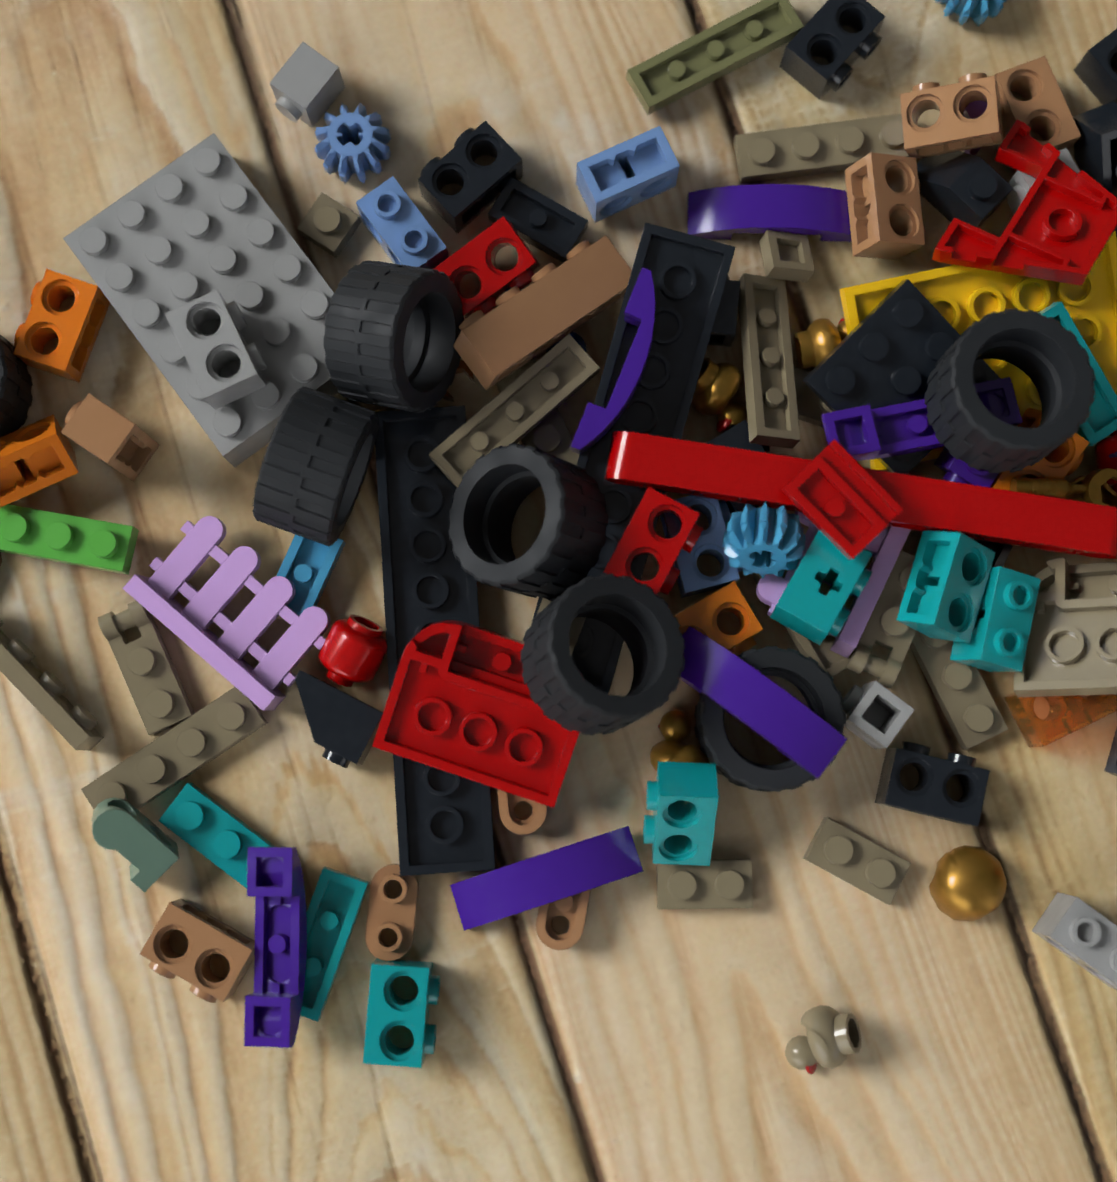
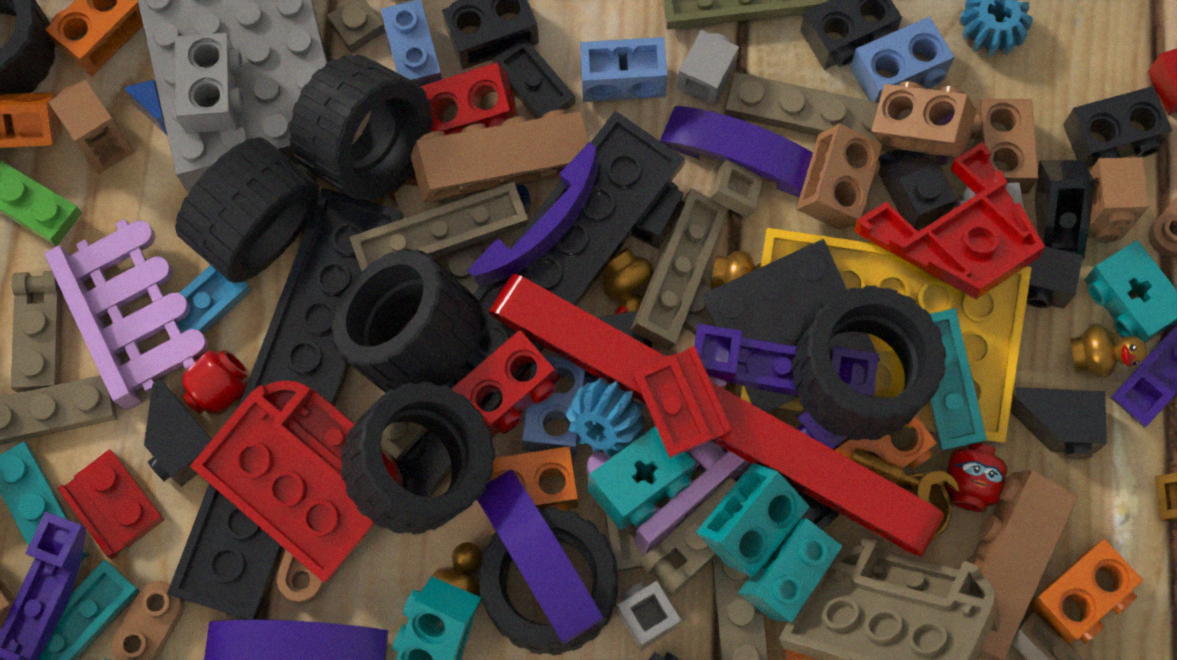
camera: 25 degrees right, 10 degrees down
(155, 388) = (147, 100): none -> blue slope
(301, 809) = (111, 504): none -> red plate
(710, 139) = (708, 66): none -> light grey brick
(894, 61) = (896, 55): none -> medium blue brick

